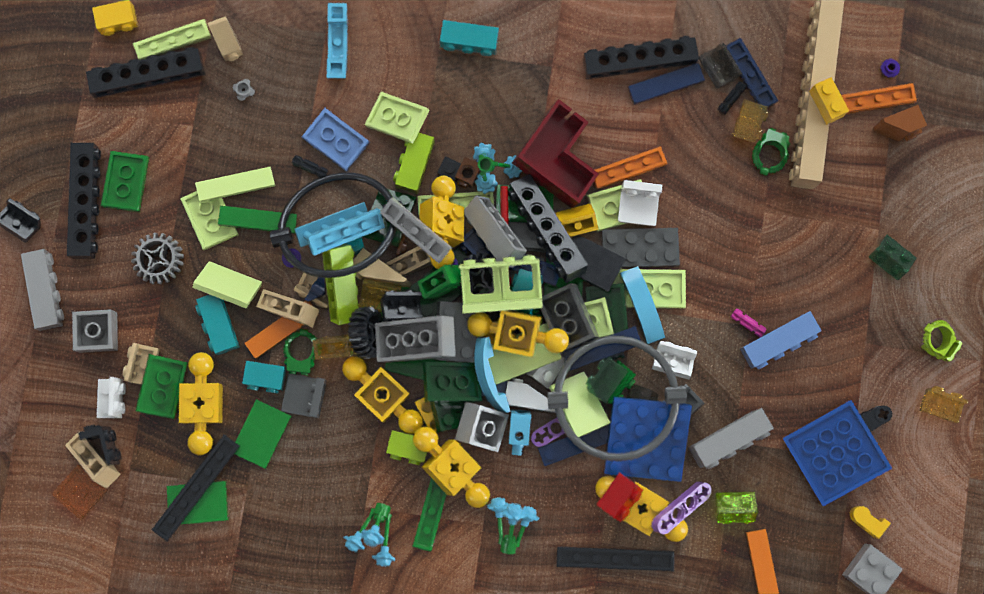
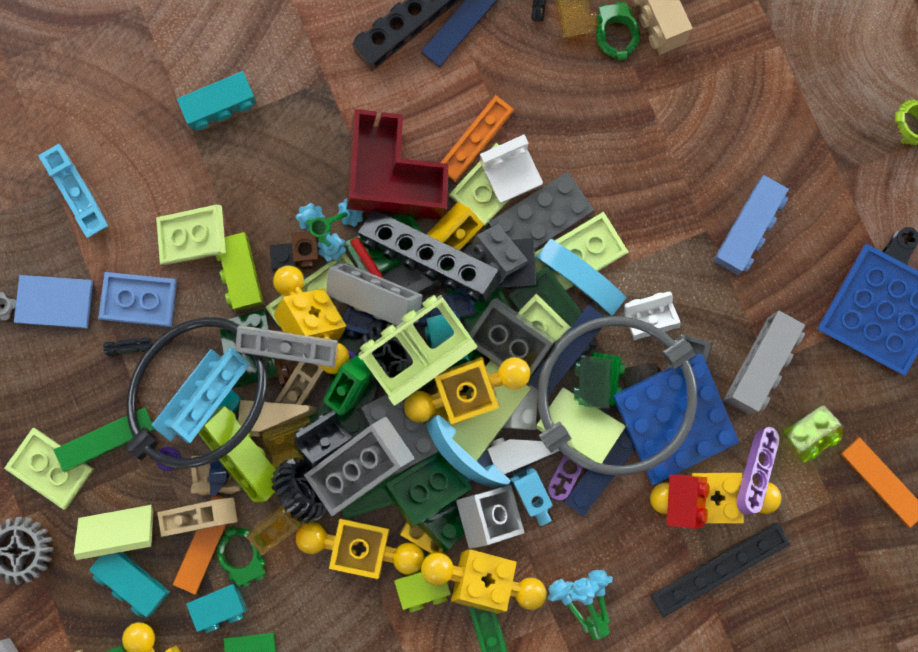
camera: 25 degrees left, 0 degrees up
(235, 184) = (55, 416): yellowish green tile -> none
(279, 107) = (53, 301): none -> medium blue tile
(304, 395) = (274, 602): dark grey bracket -> none
(596, 253) = (498, 251): none -> dark grey bracket
(748, 323) = (705, 227): dark pink axle -> none
(892, 257) = (813, 66): clear green bracket -> none

